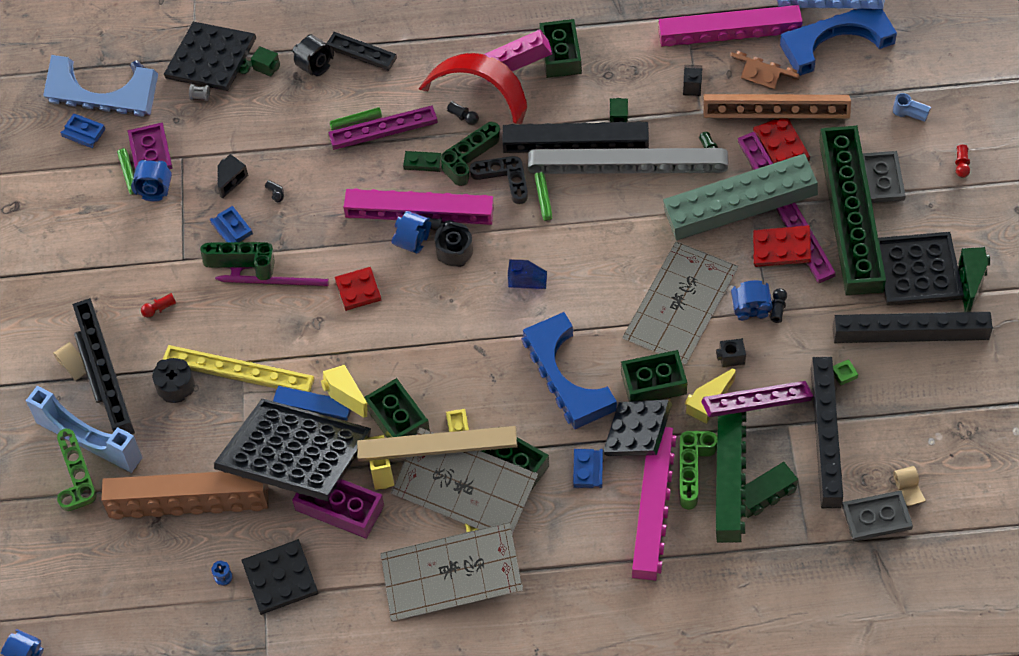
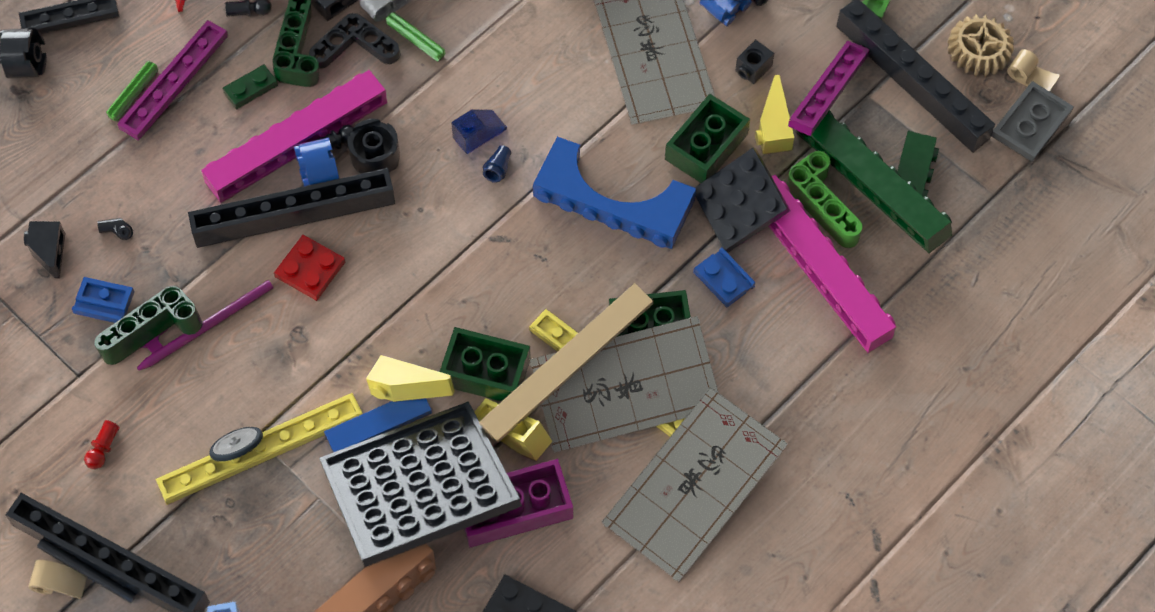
camera: 45 degrees left, 5 degrees up
(173, 380) = (201, 497): black brick -> none
(224, 356) = (236, 444): none -> wheel
(376, 246) = (291, 208): none -> black brick
(516, 305) = (496, 166): none -> dark blue cone
(890, 450) = (995, 44): none -> tan gear

